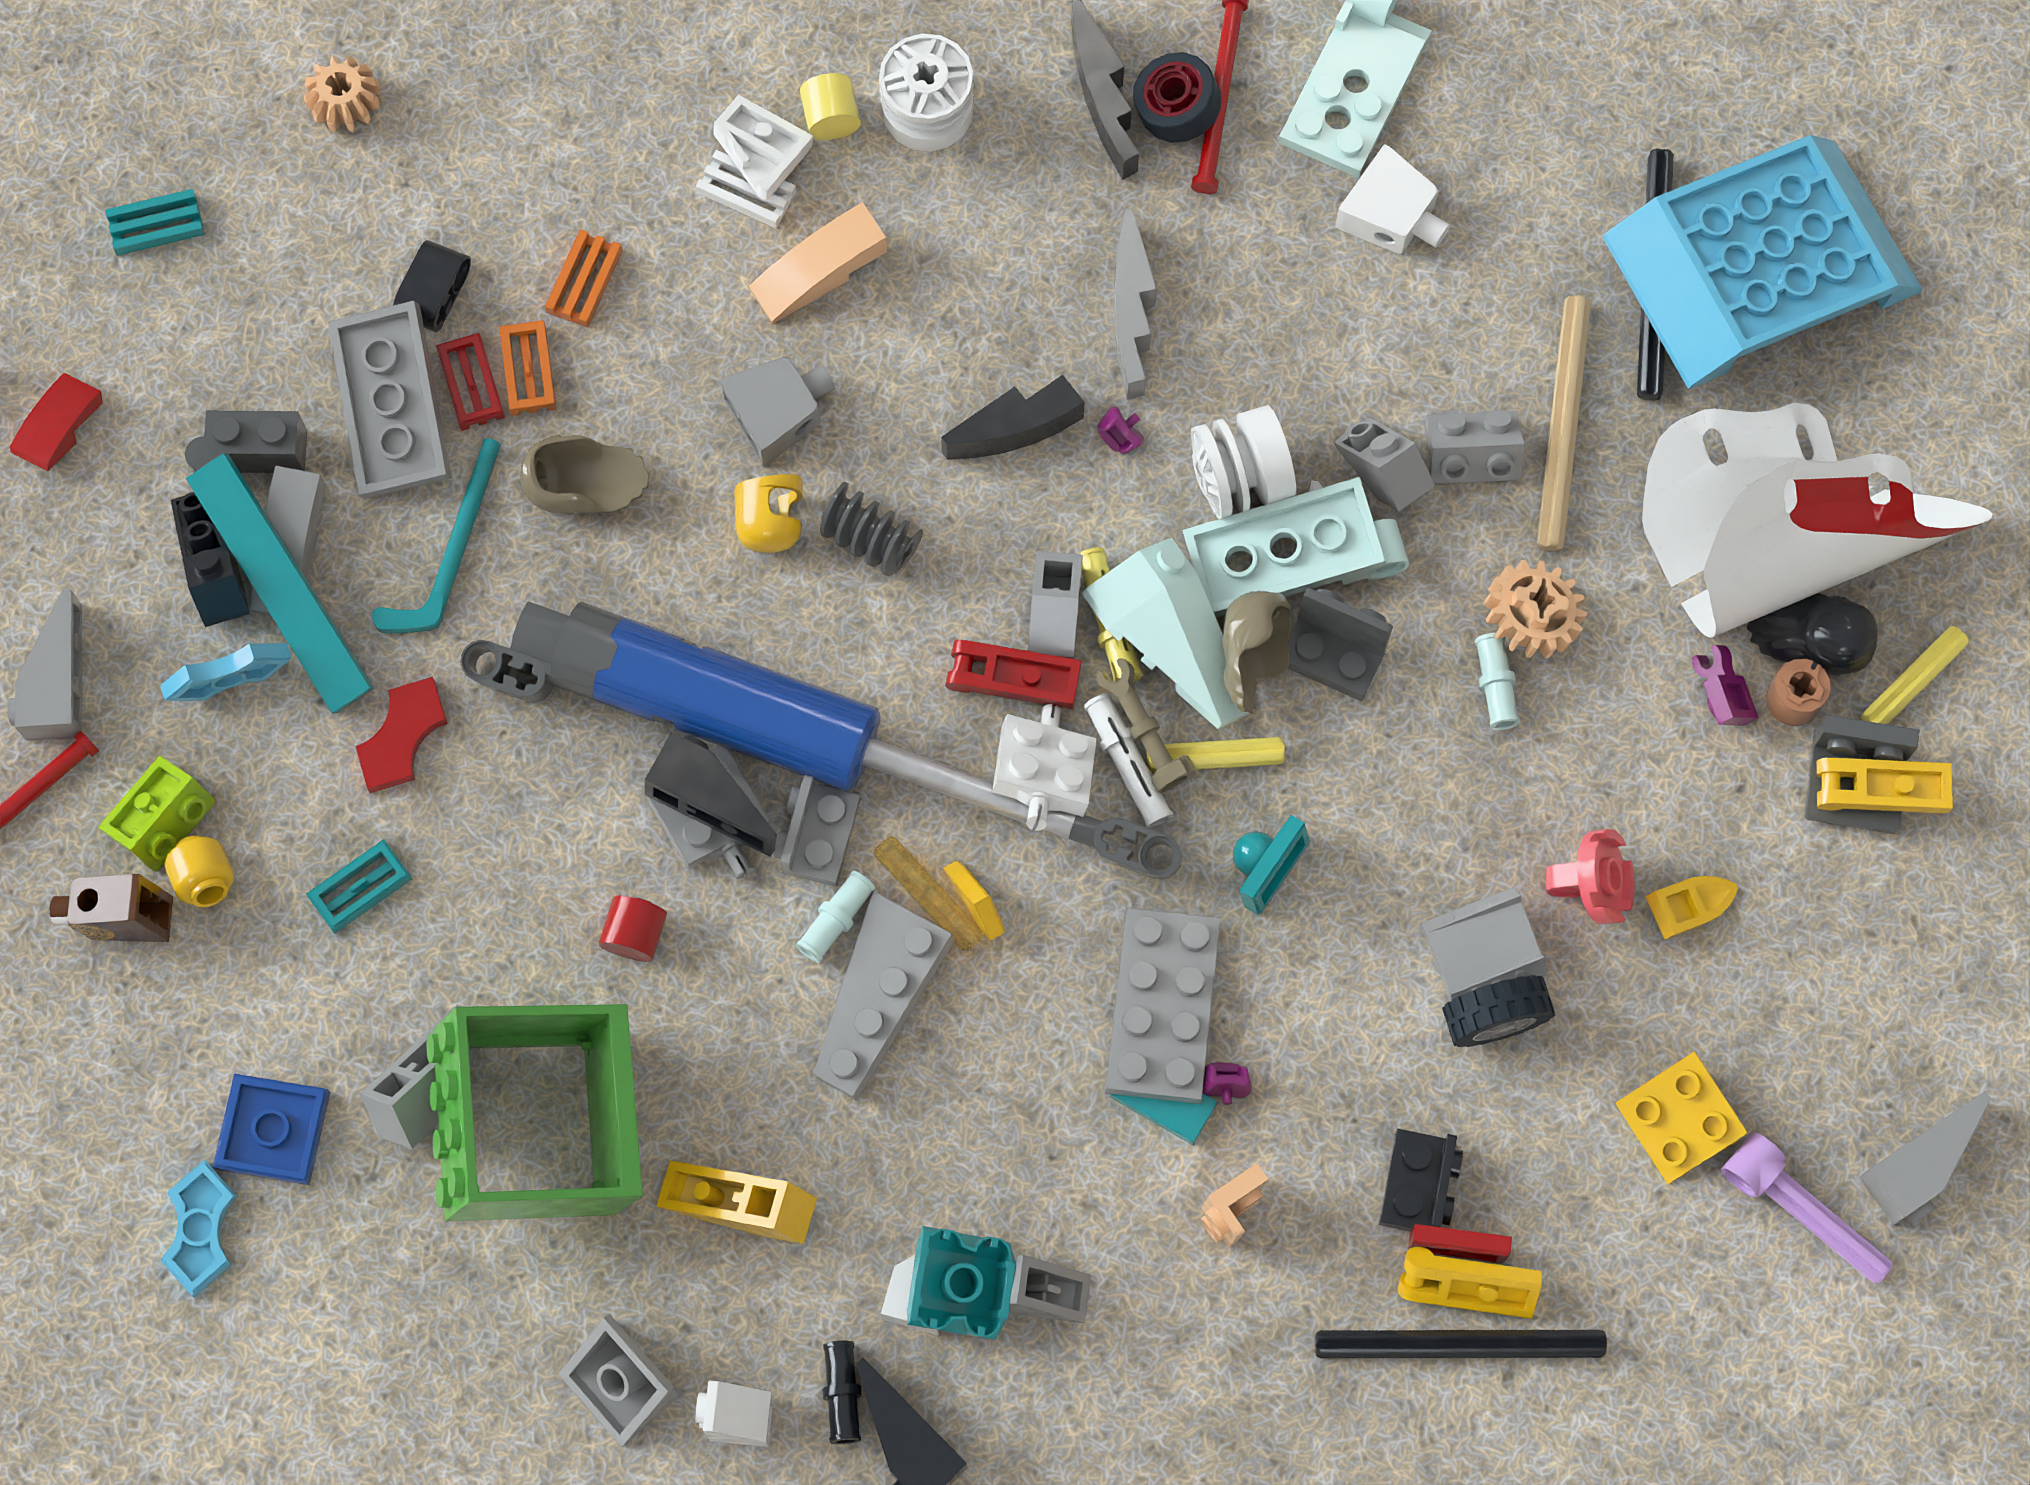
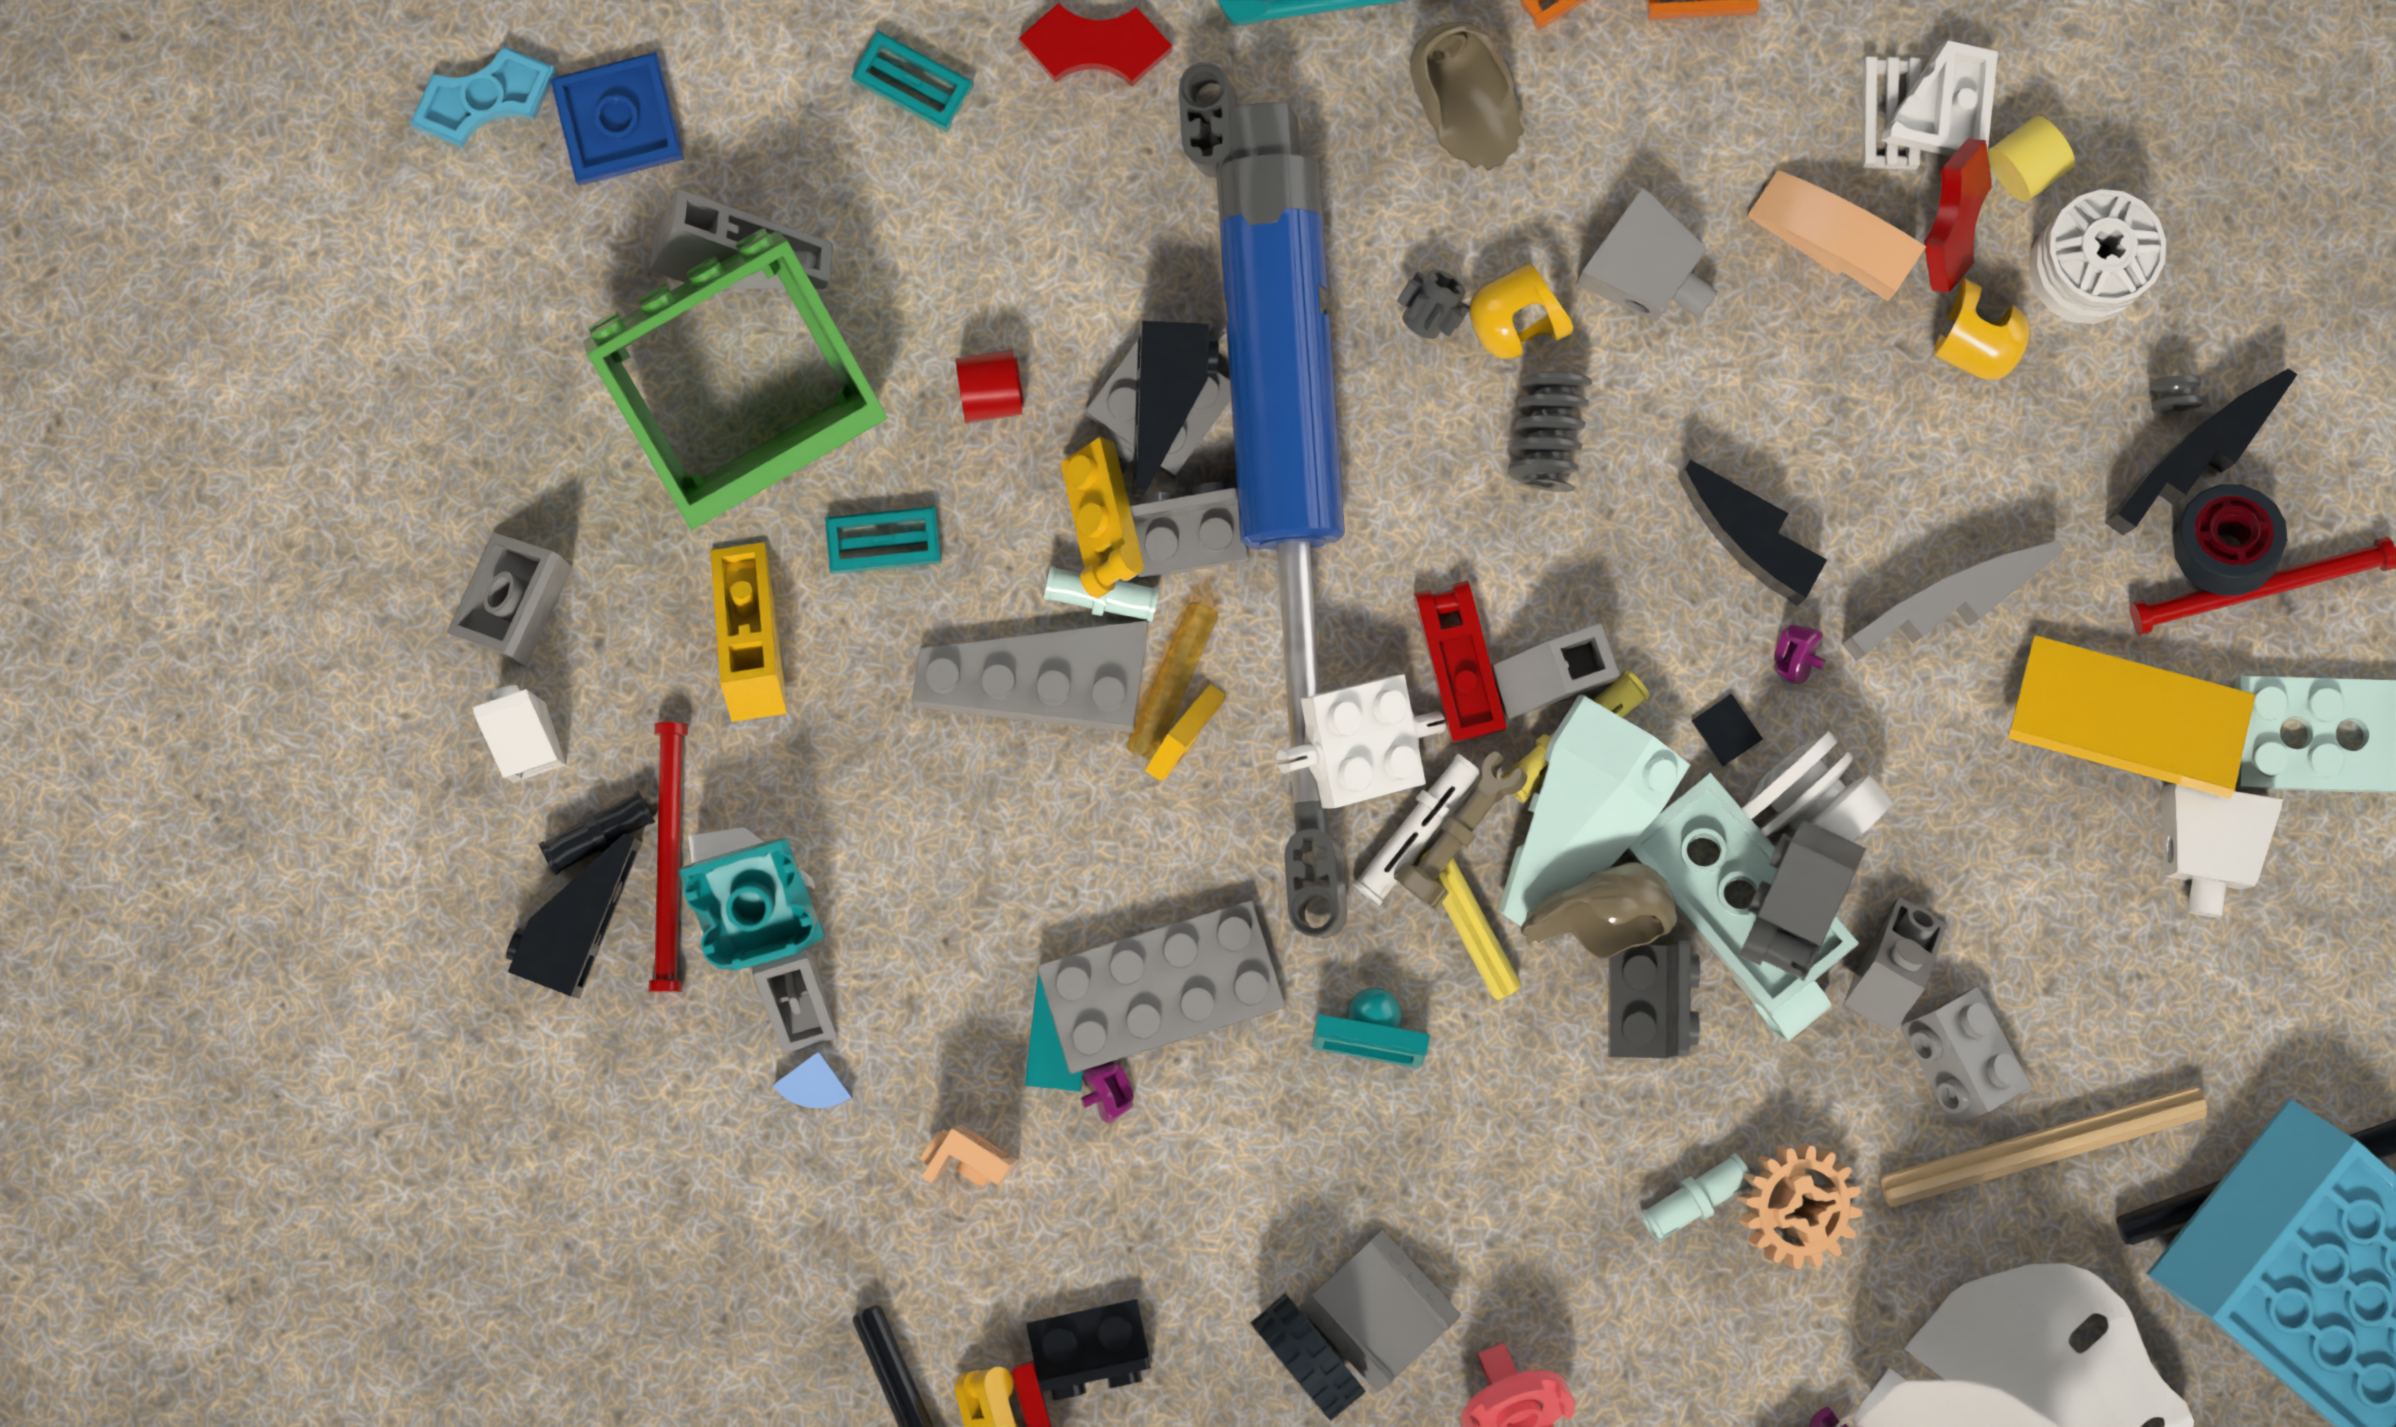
camera: 65 degrees right, 10 degrees up
(699, 1105) = (888, 561): none -> teal tile
(731, 571) = (1433, 304): none -> dark grey gear
(778, 885) = (1101, 517): none -> yellow plate
(836, 164) = (1963, 191): none -> red tile
(887, 1344) = (668, 857): none -> red bar
(952, 201) = (1981, 346): none -> yellow helmet
(1051, 87) = (2176, 393): none -> dark grey bush
(1120, 1308) = (813, 1085): none -> light blue tile
(1154, 508) = (1727, 730): none -> black piece
(1276, 219) = (2132, 716): none -> yellow tile
(1311, 495) = (1802, 900): none -> dark grey hinge

